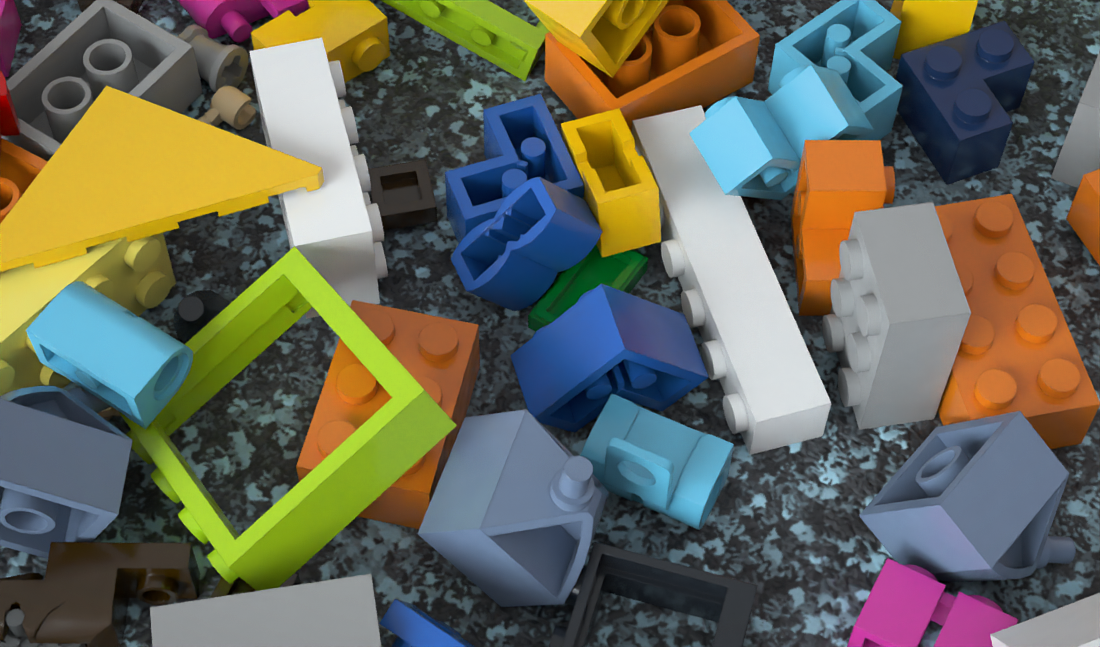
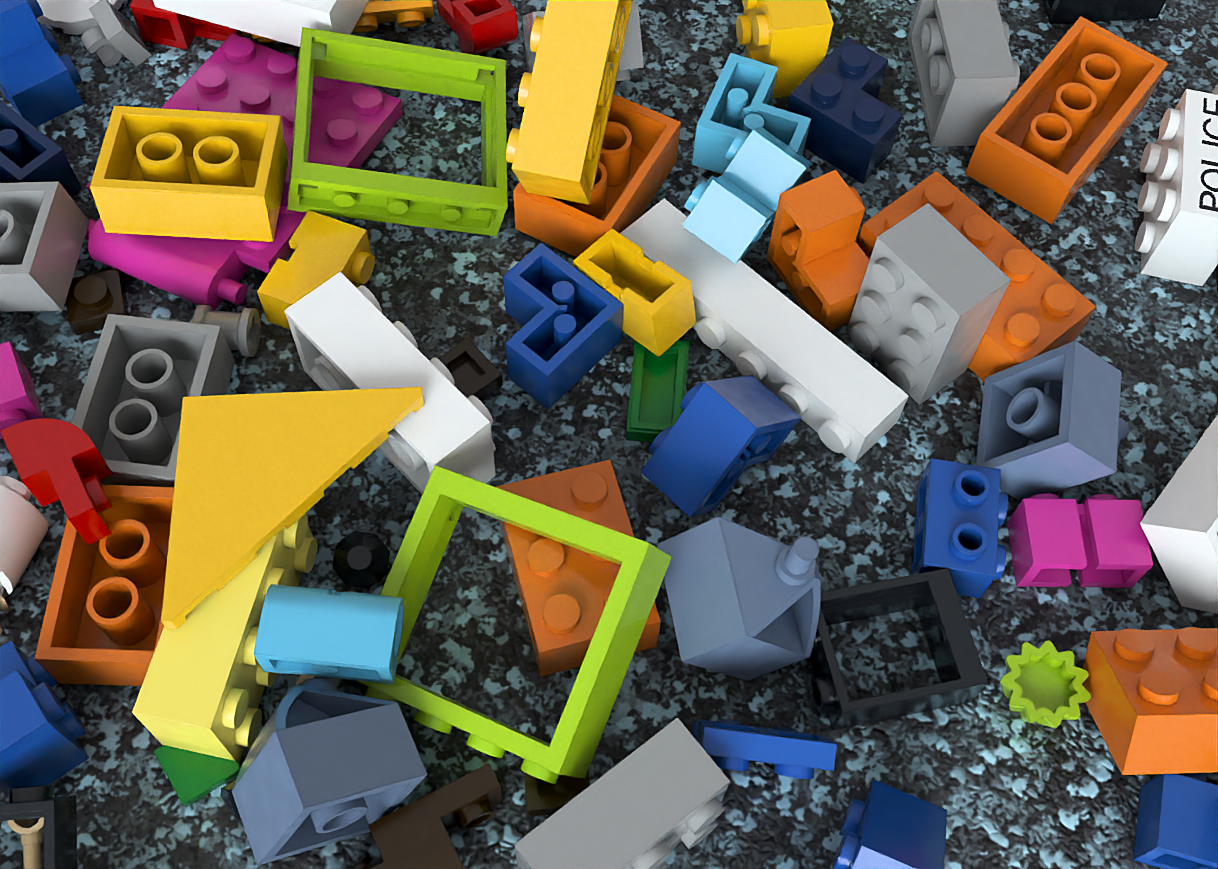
camera: 30 degrees left, 5 degrees up
(229, 106) = (268, 363): tan hand -> none
(526, 244) = (606, 365): blue brick -> none
(657, 461) = (804, 501): medium azure piece -> none
(808, 559) = (959, 524): none -> blue brick

